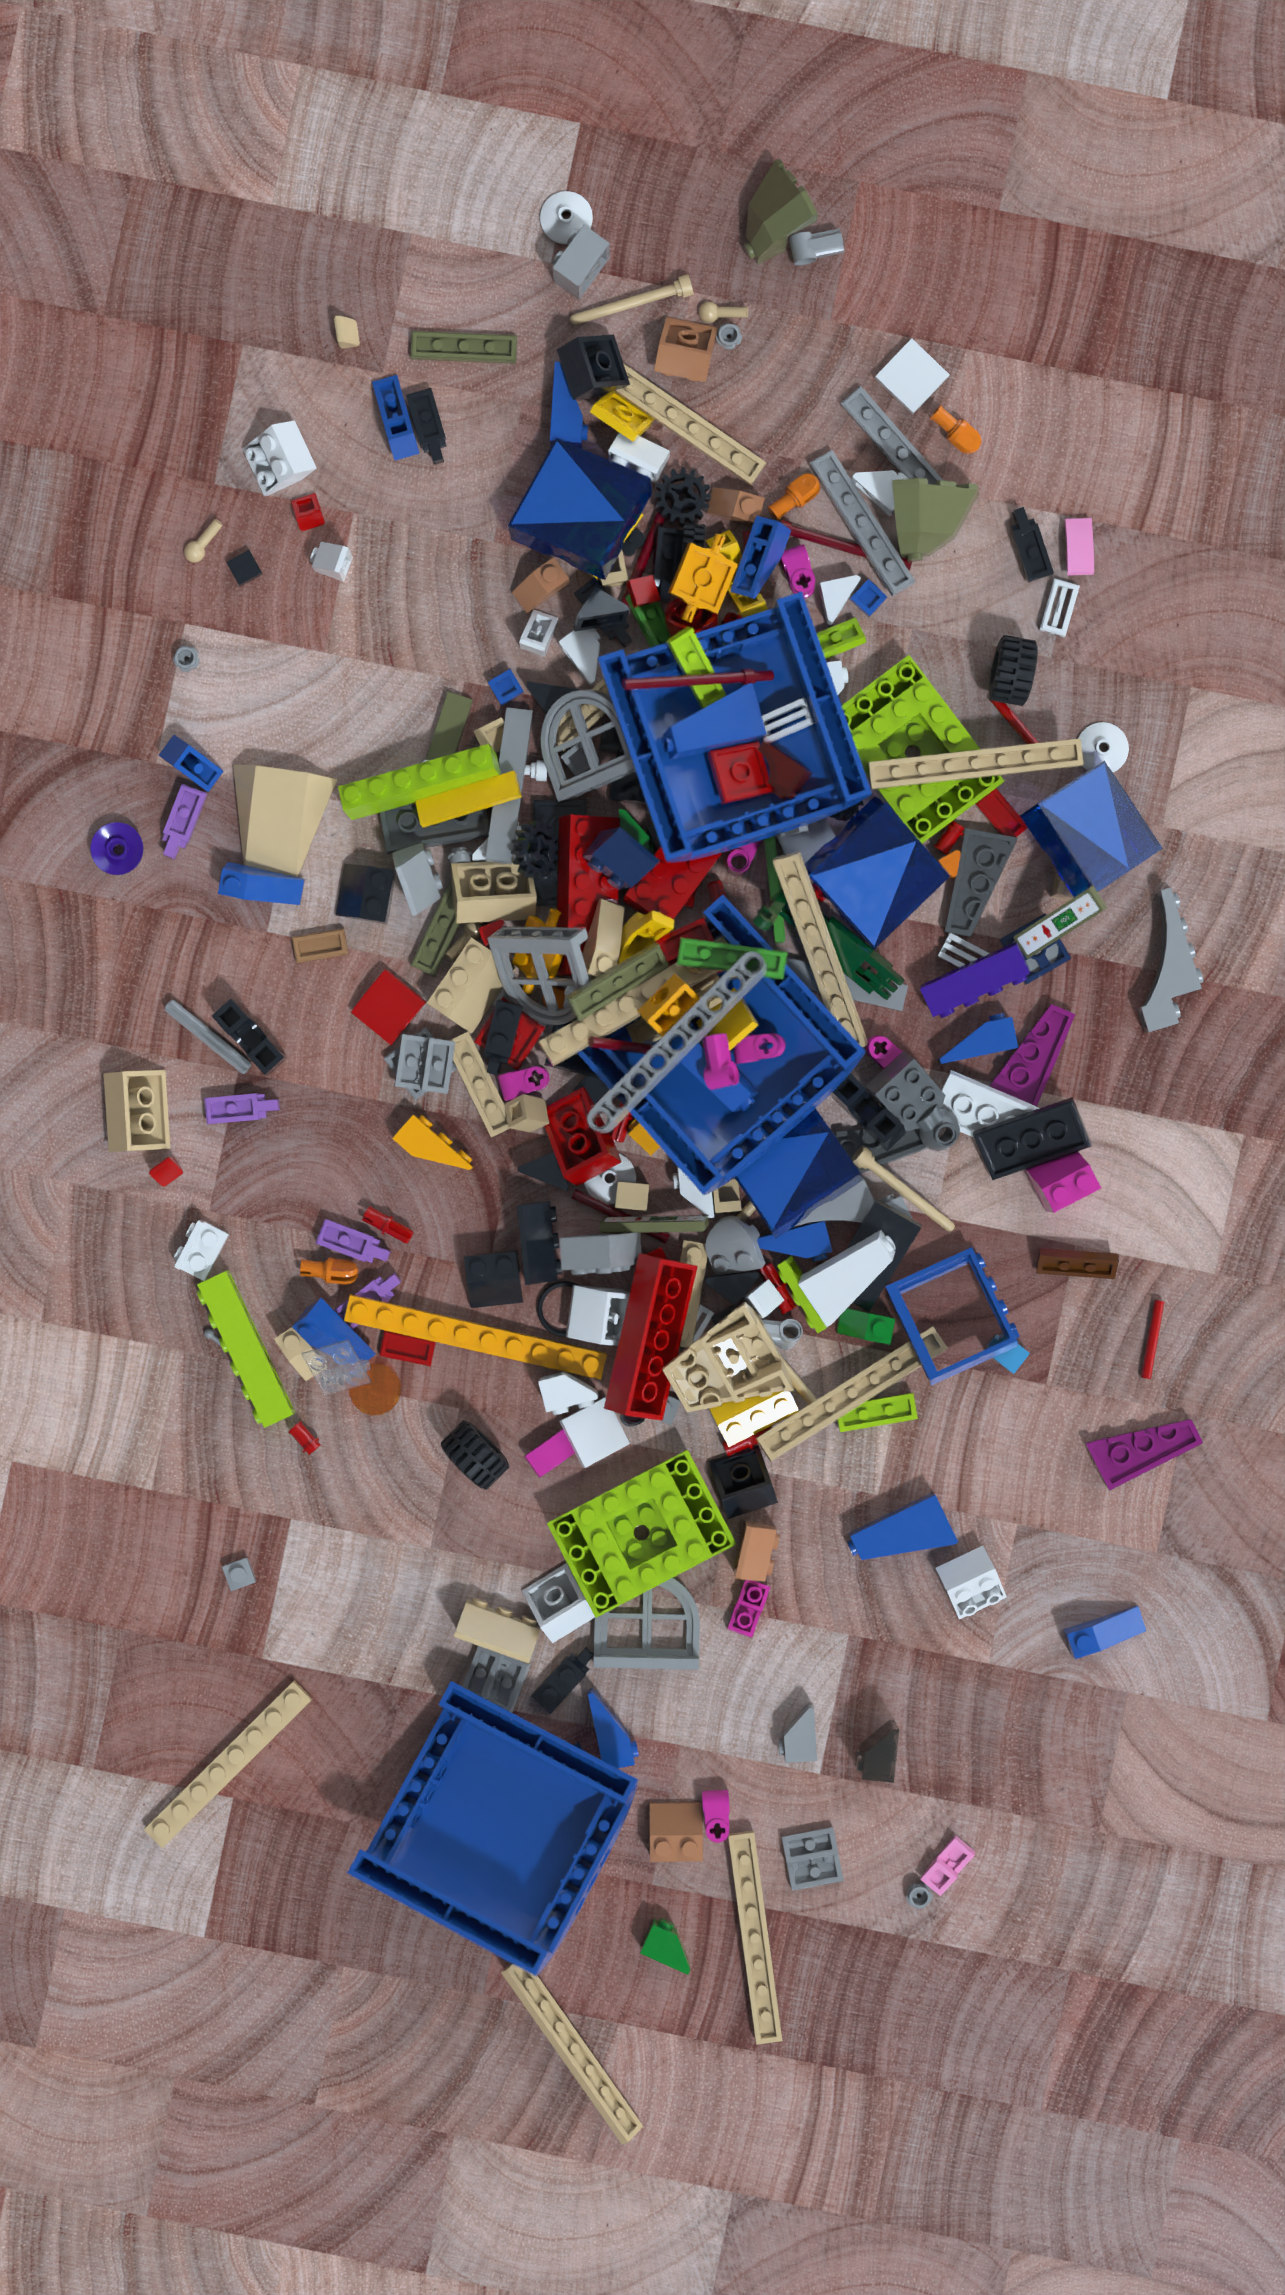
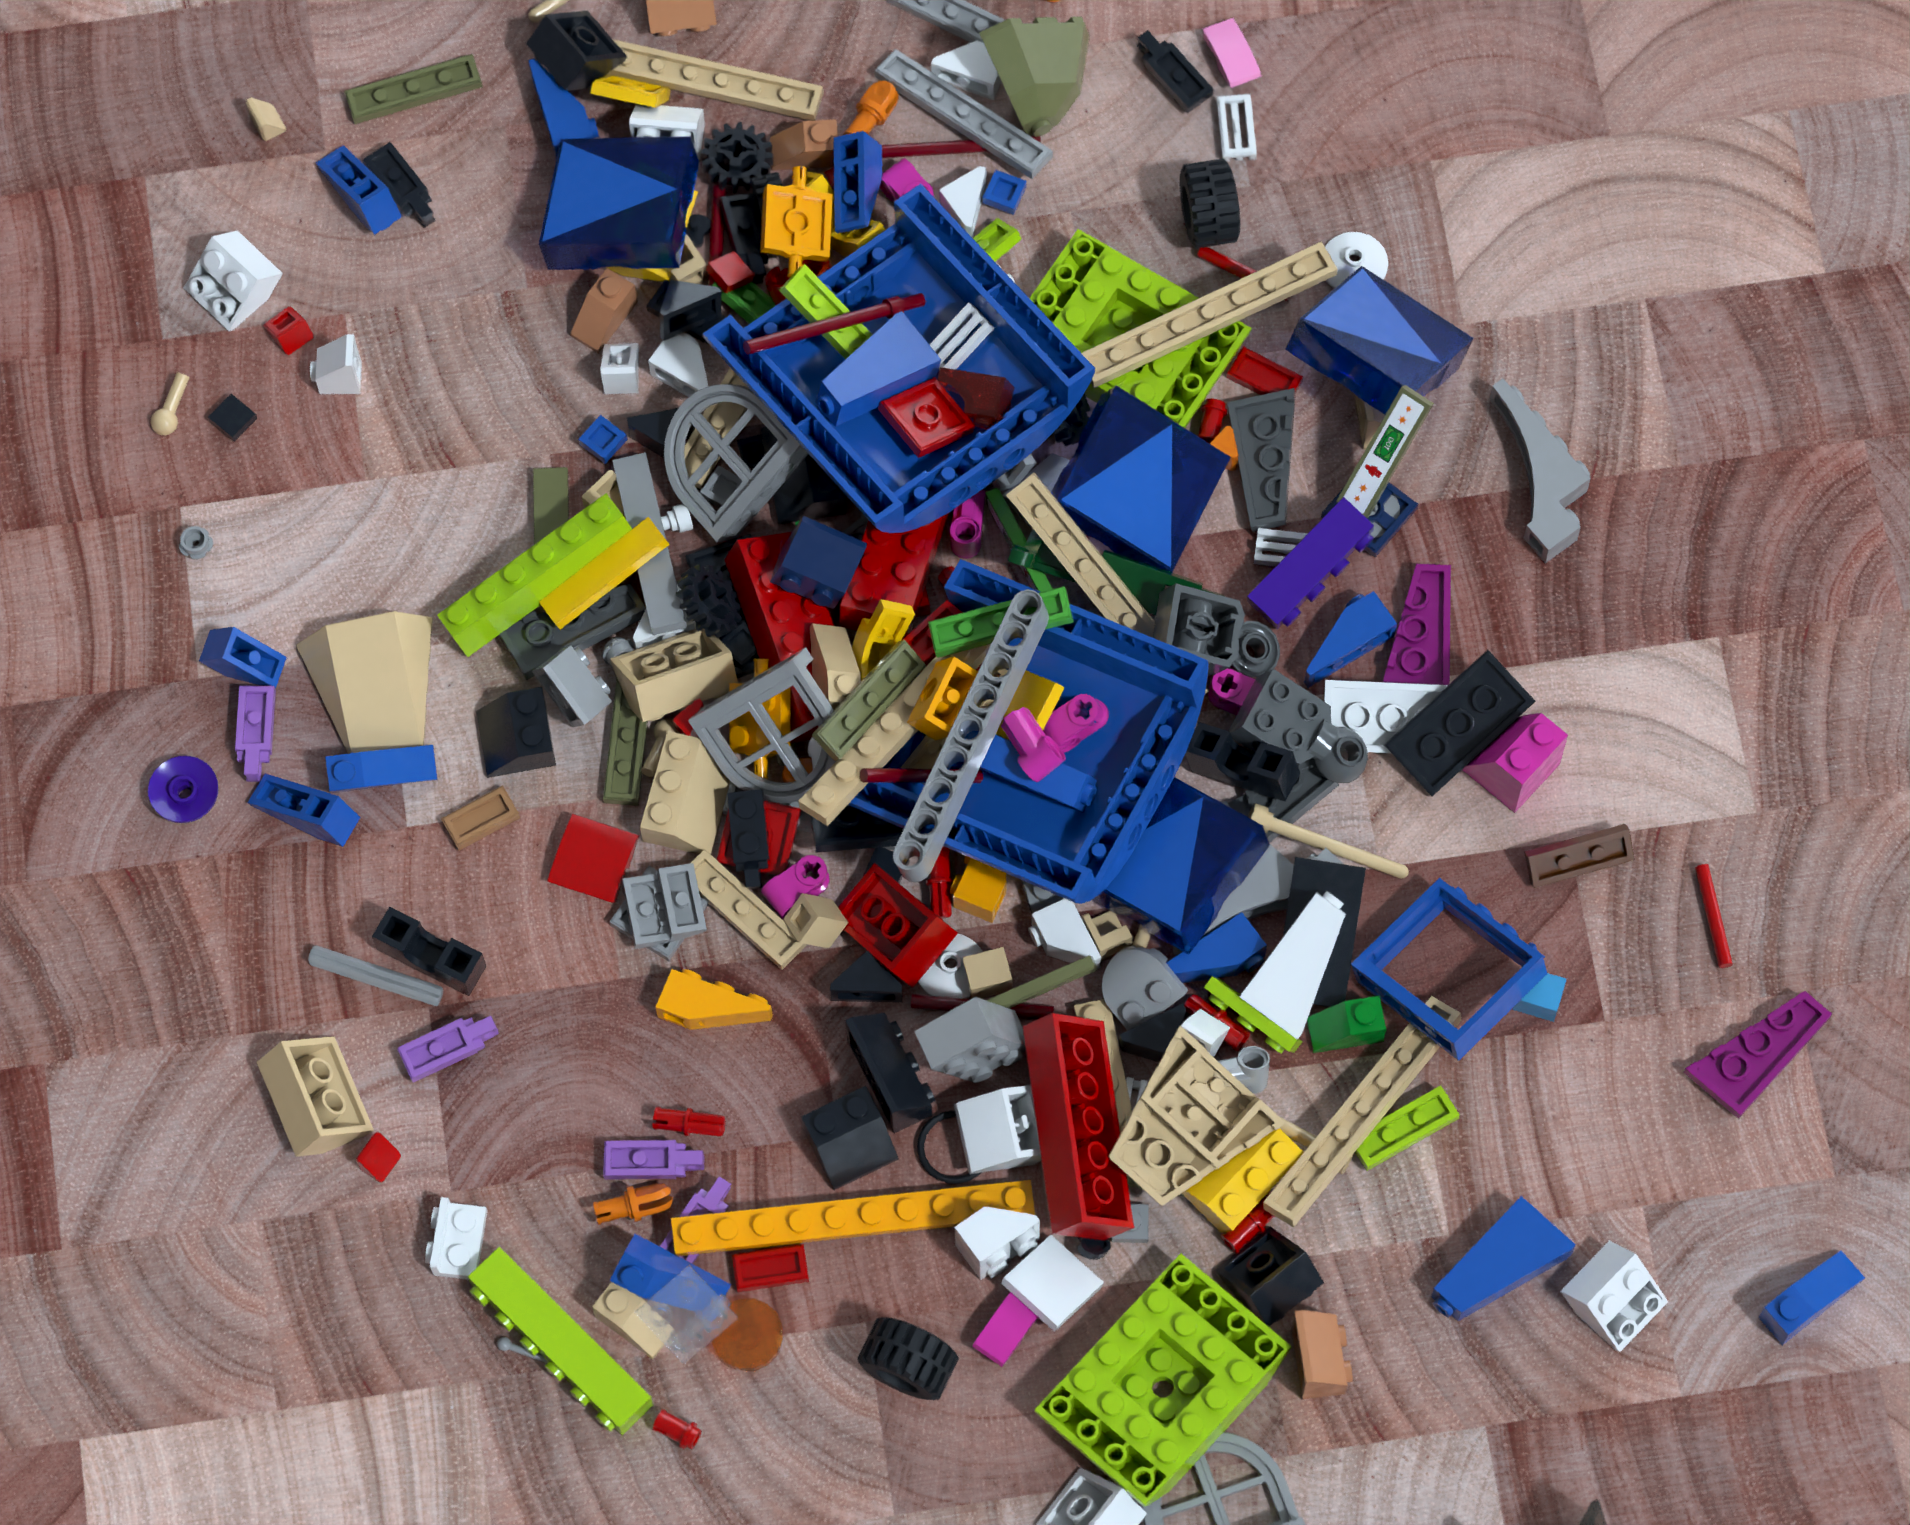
camera: 20 degrees left, 20 degrees down
(197, 895) = (305, 808): none -> blue slope
(748, 1608) = (1340, 1436): dark pink slope -> none
(881, 1012) = (1214, 630): none -> dark grey brick

